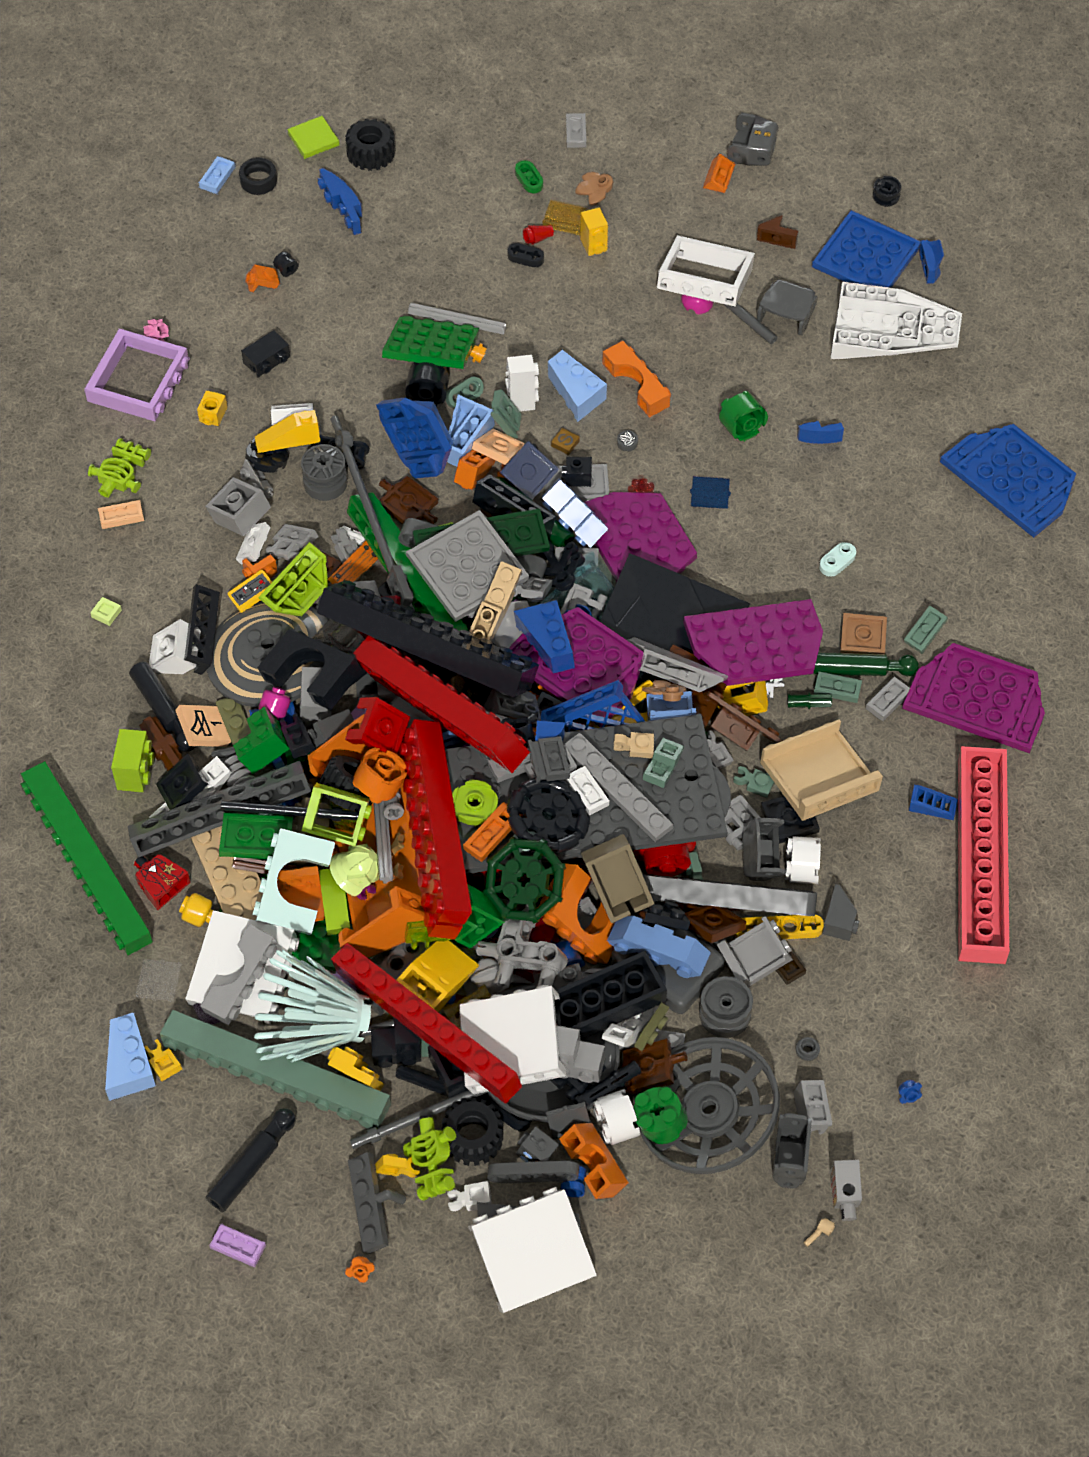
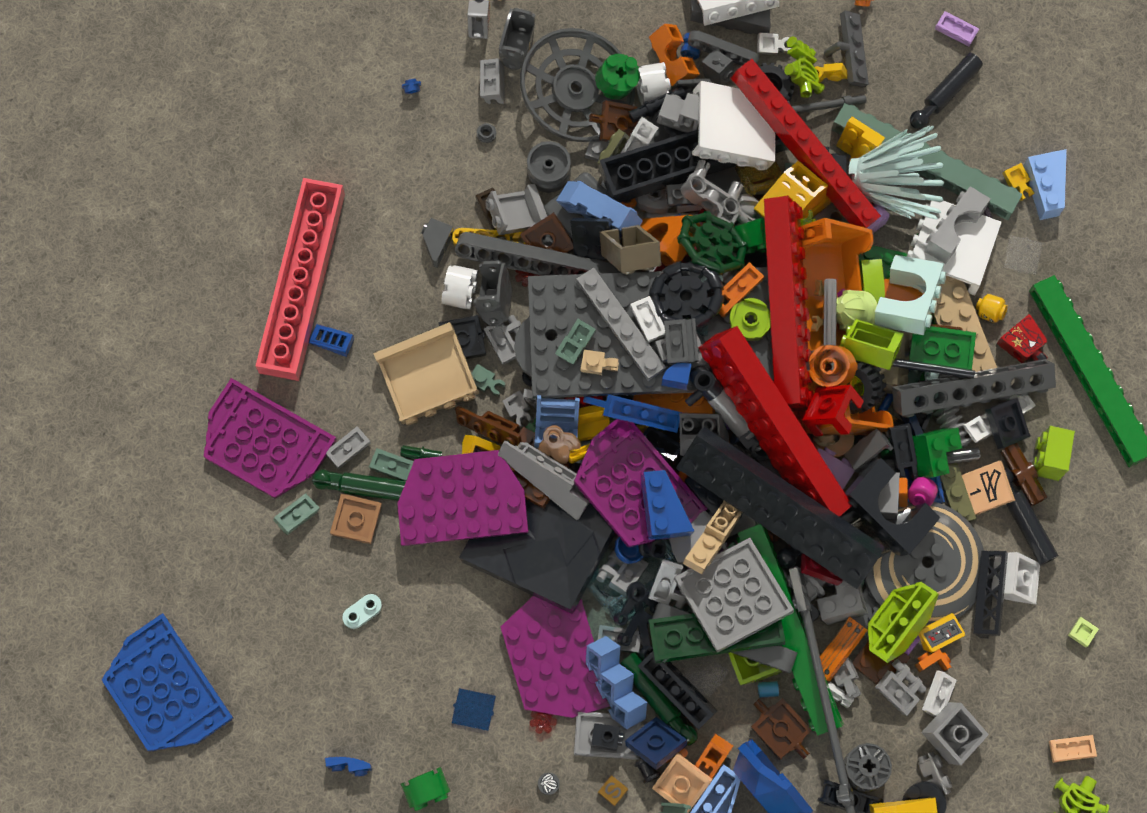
camera: 175 degrees left, 15 degrees up
(295, 703) = (903, 492): none -> orange tile

